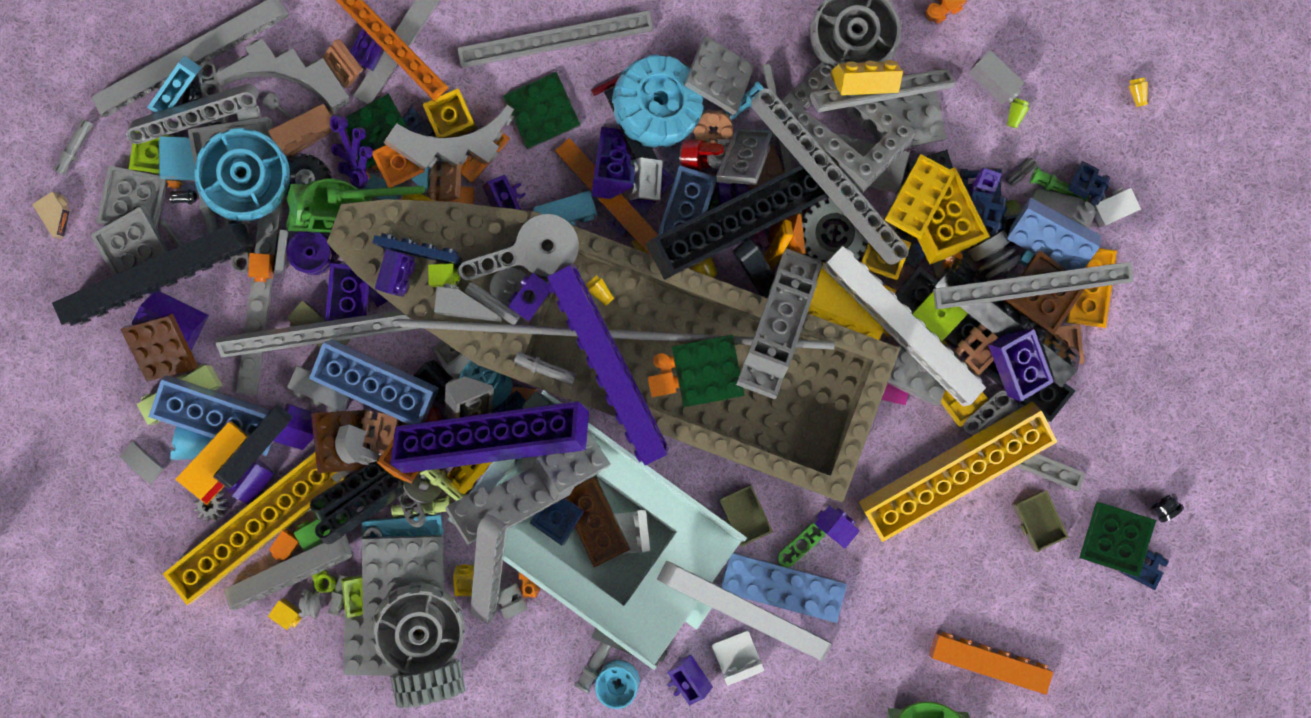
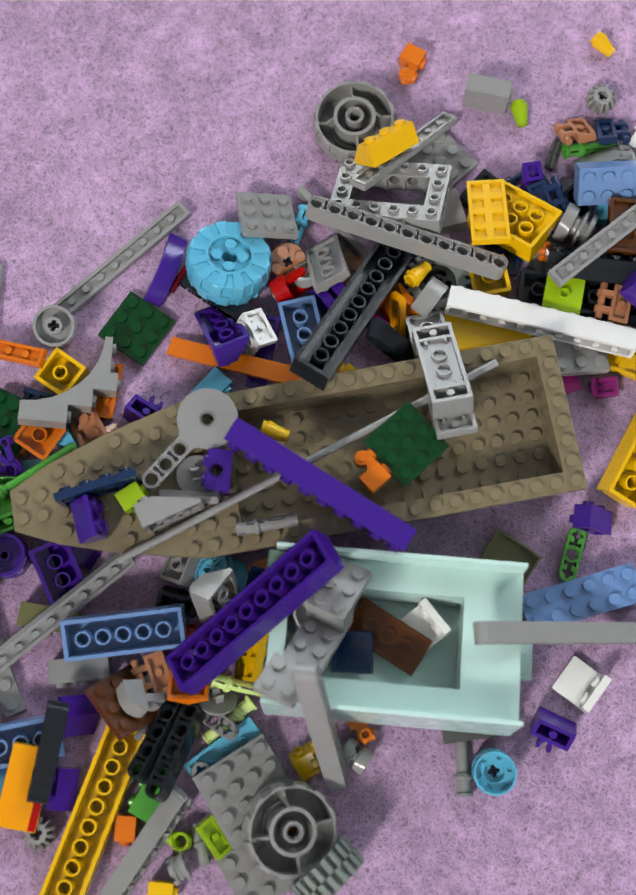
camera: 30 degrees left, 10 degrees down
(456, 67) = (44, 322): none -> light grey wheel
(600, 71) = (166, 270): none -> dark purple slope
(818, 243) = (429, 297): none -> light grey slope
(819, 216) = (417, 274): none -> yellow cone
(925, 416) = (604, 387): none -> magenta bracket
(1060, 165) = (574, 129): none -> nougat plate
(1100, 137) = (594, 100): none -> light grey gear

